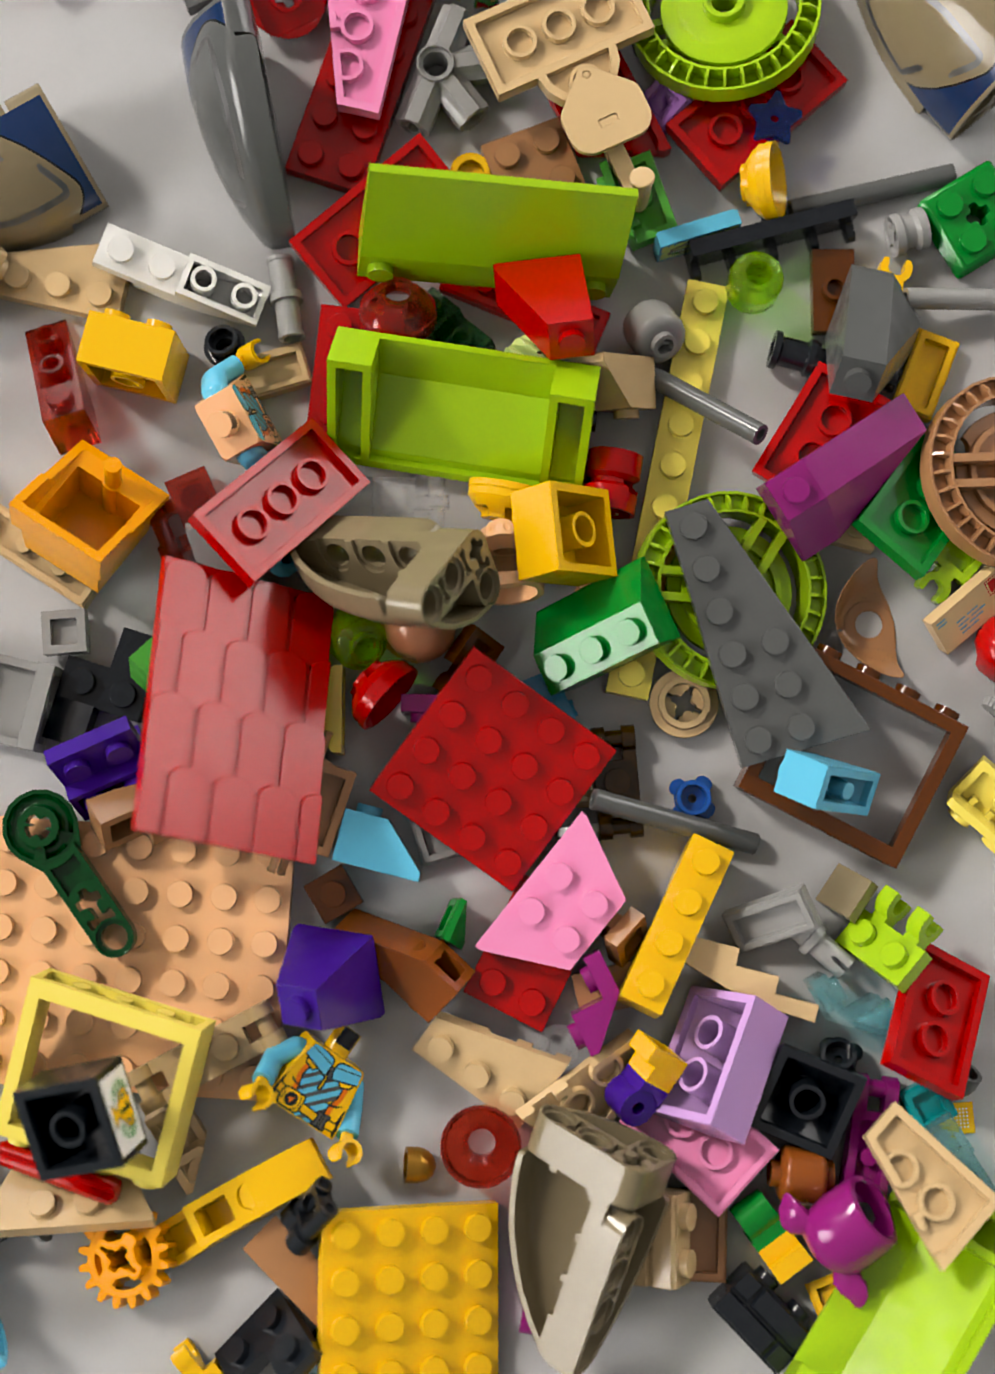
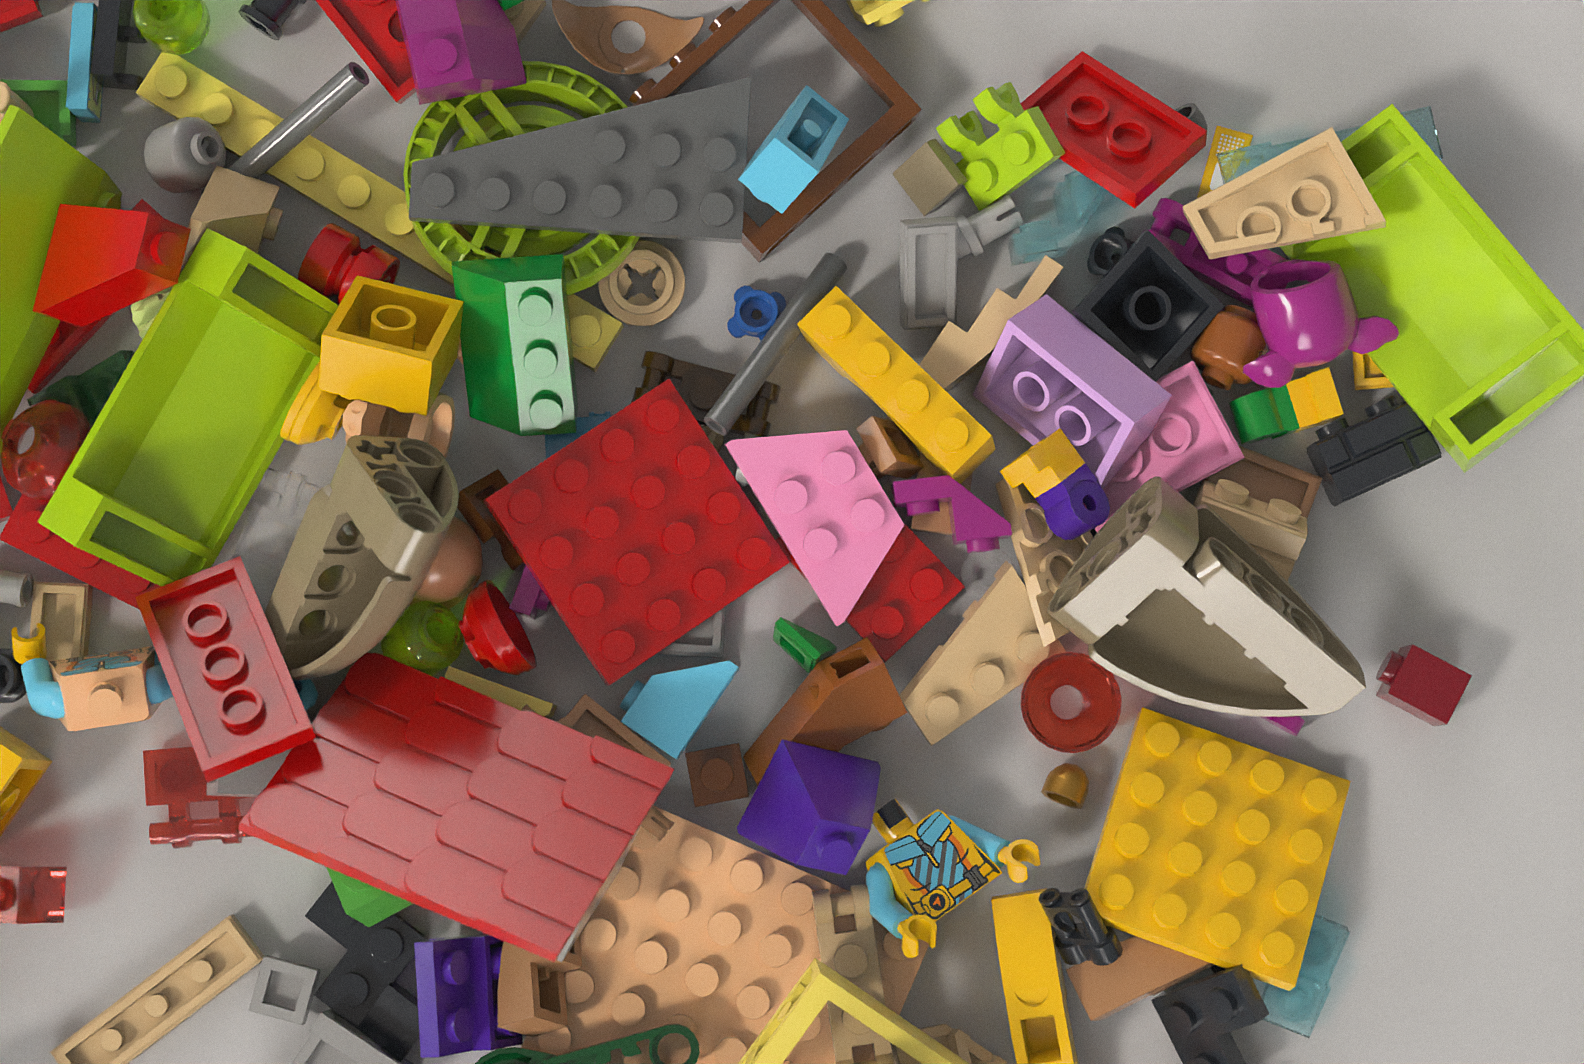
camera: 70 degrees left, 0 degrees up
(86, 513) = (150, 909): light orange piece -> none
(924, 1104) = (1198, 175): teal tile -> none

